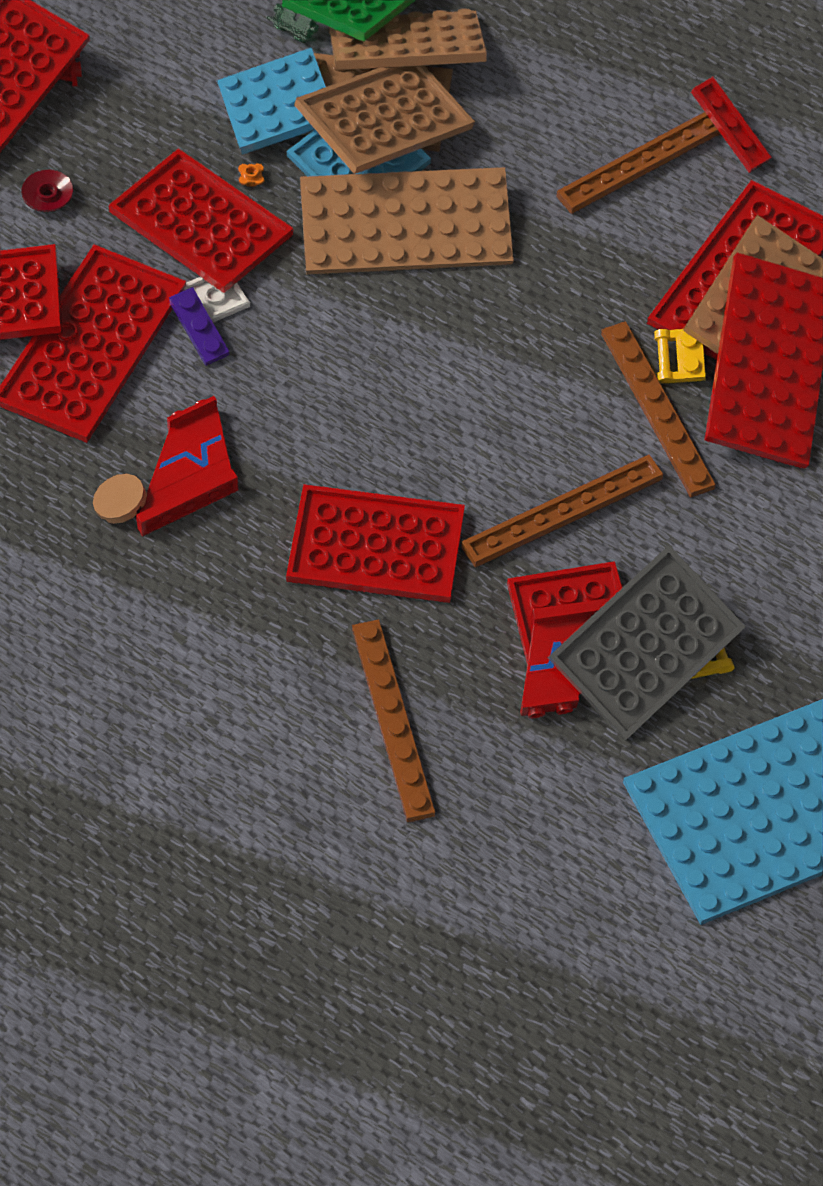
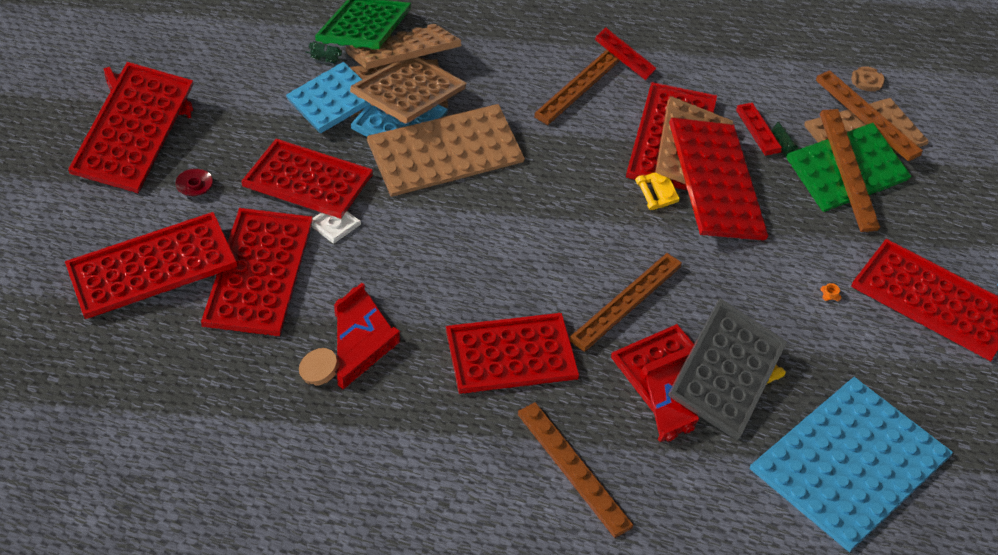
camera: 20 degrees left, 10 degrees down
(199, 326) = (332, 242): dark purple plate -> none
(251, 179) = (330, 145): orange plate -> none
(658, 409) = (658, 226): dark orange plate -> none

